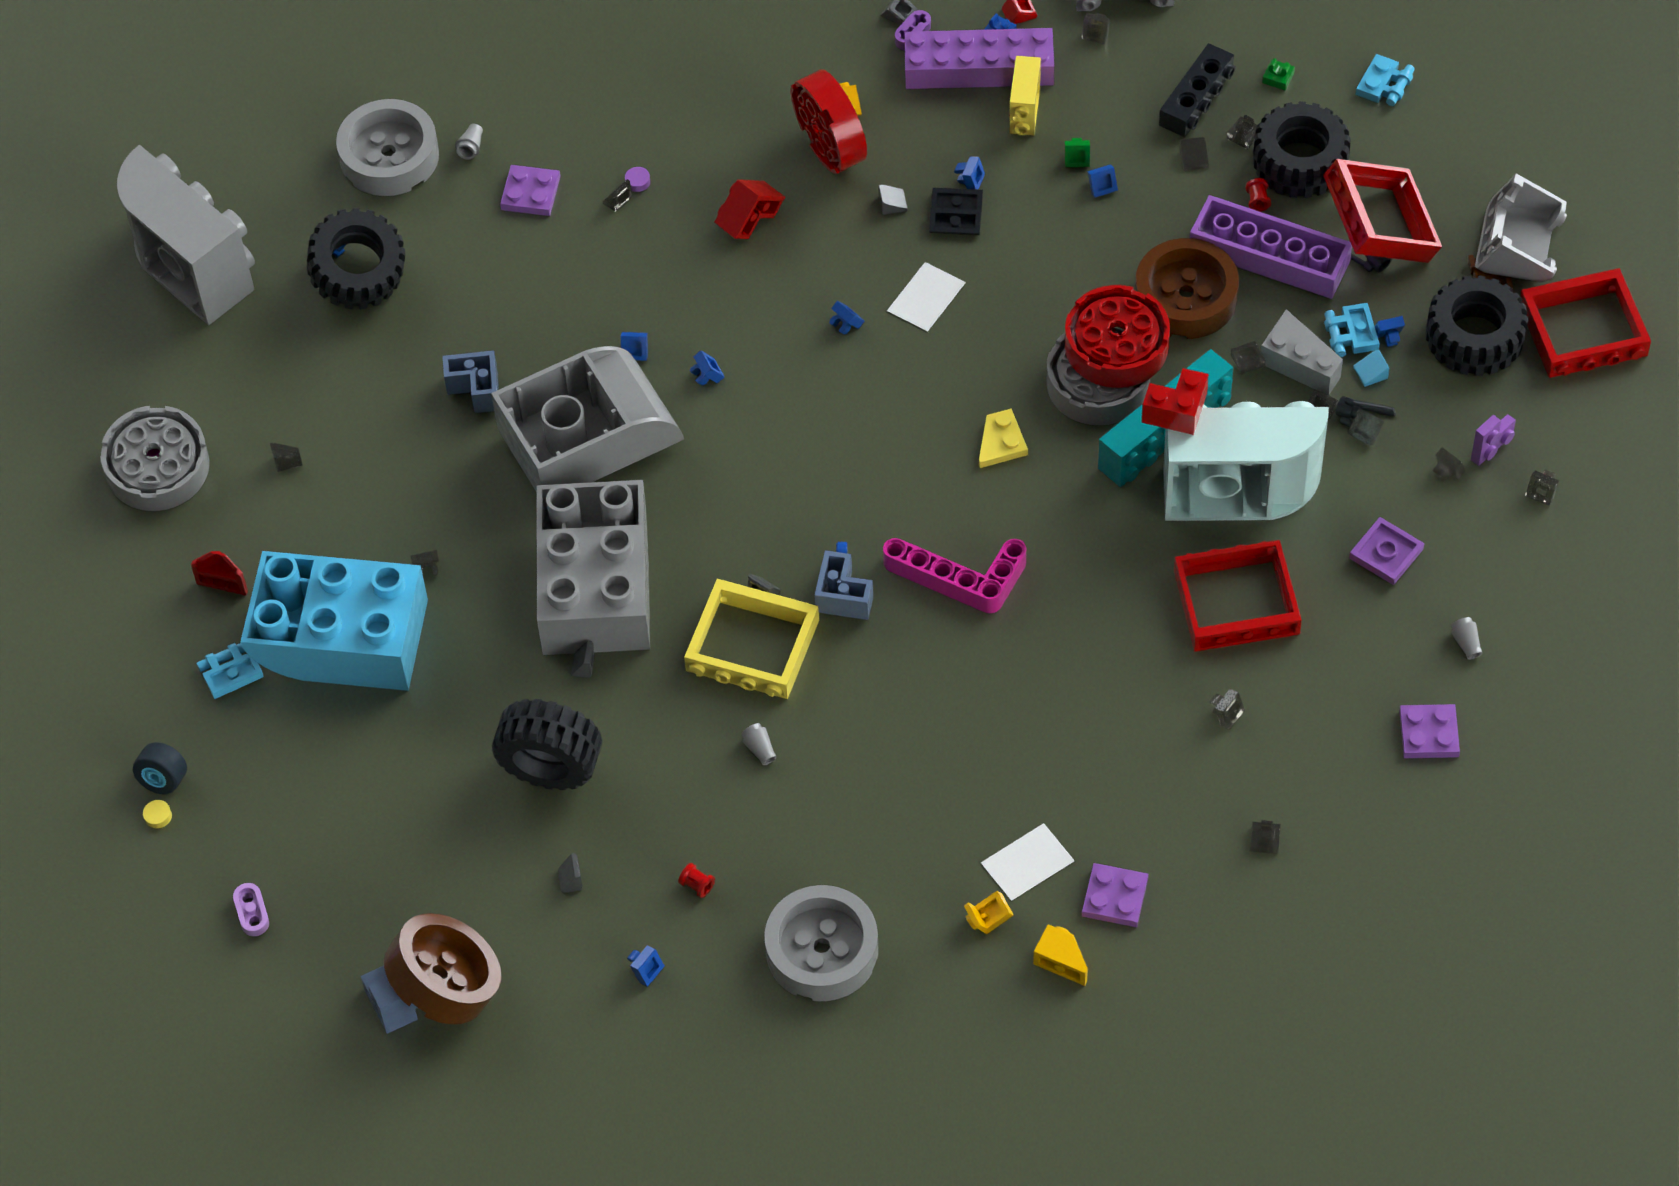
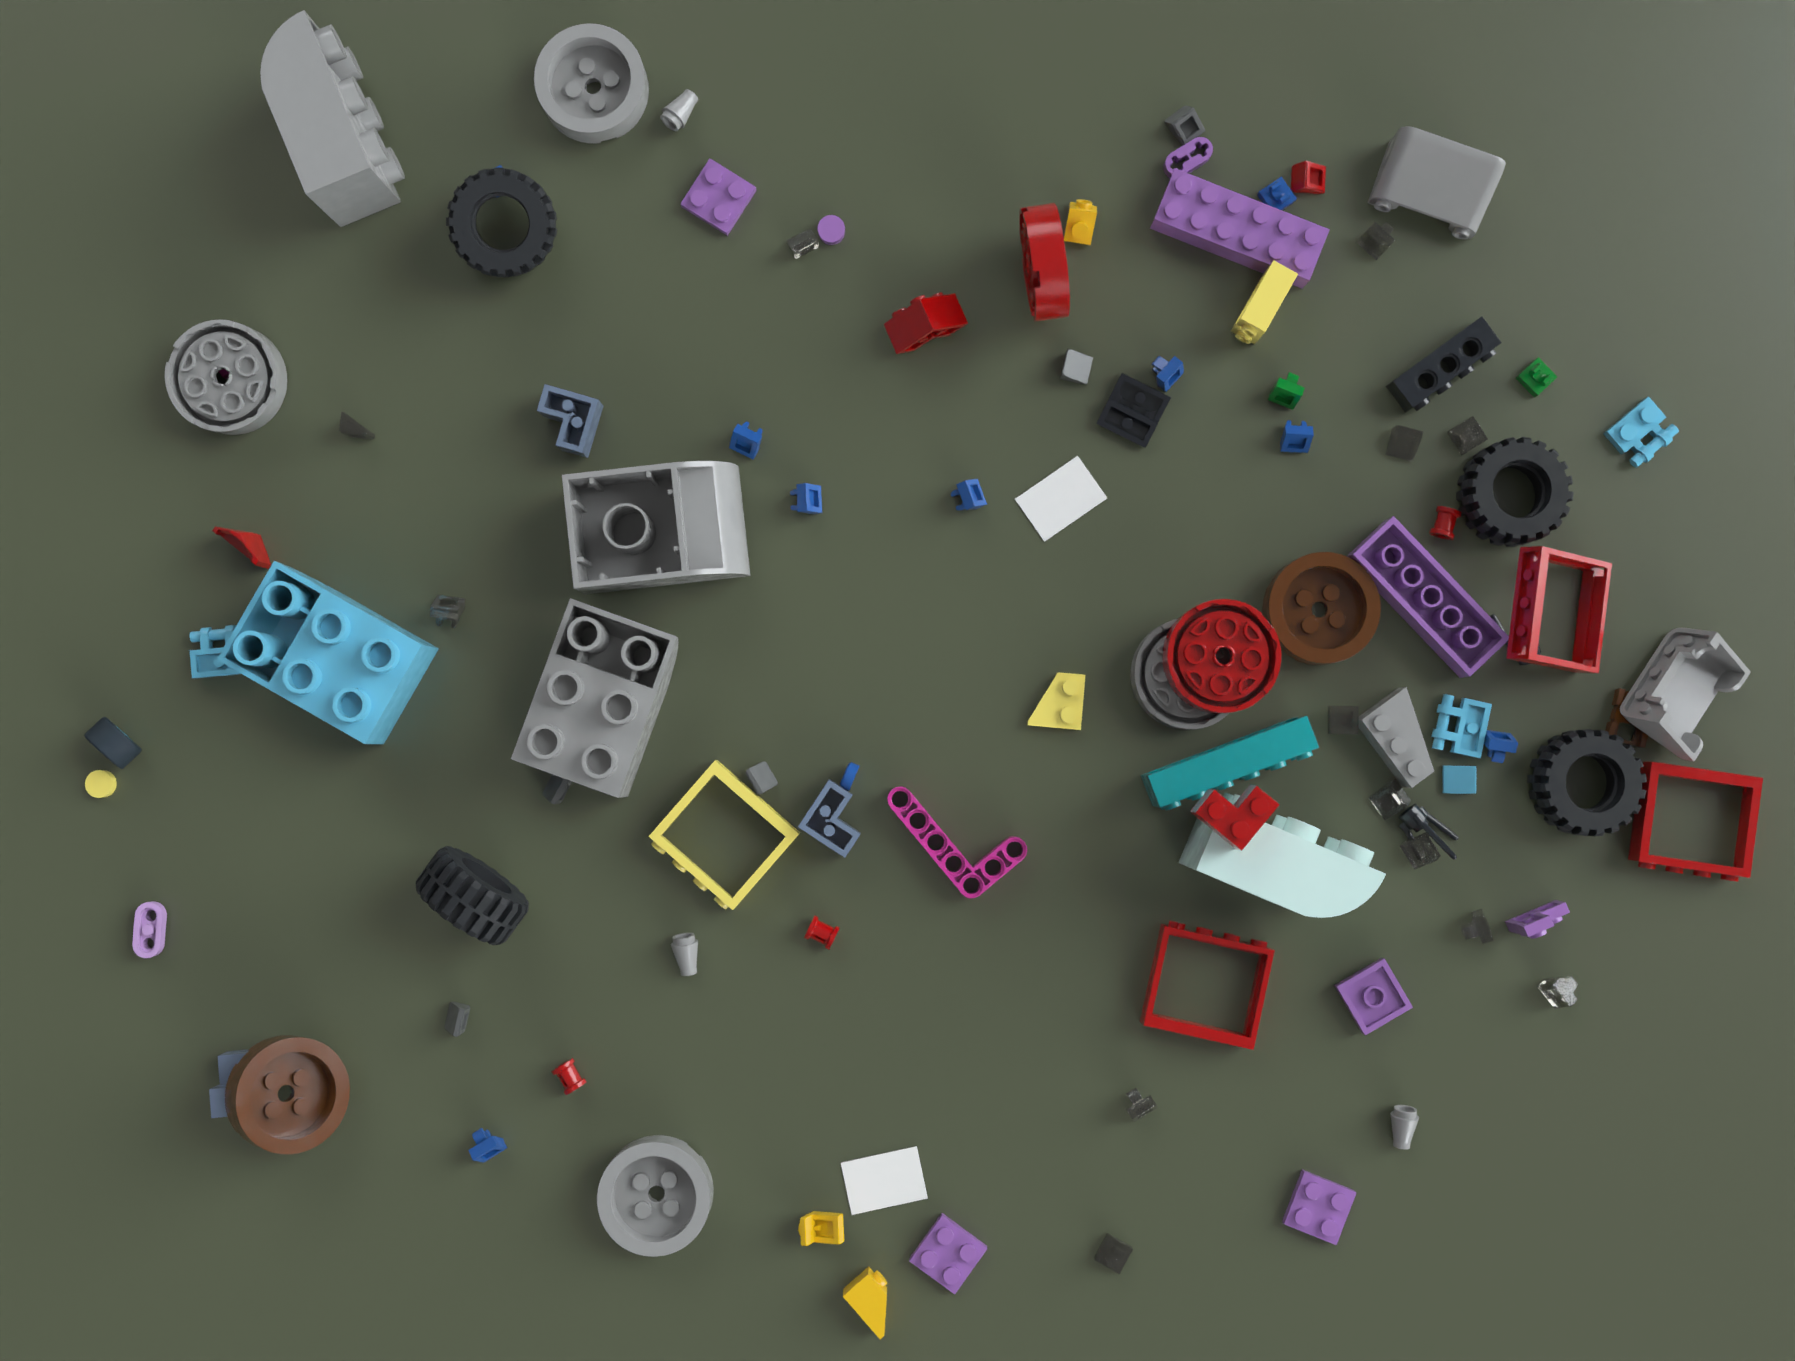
camera: 20 degrees right, 30 degrees up
(876, 687) = (821, 932): none -> red bush

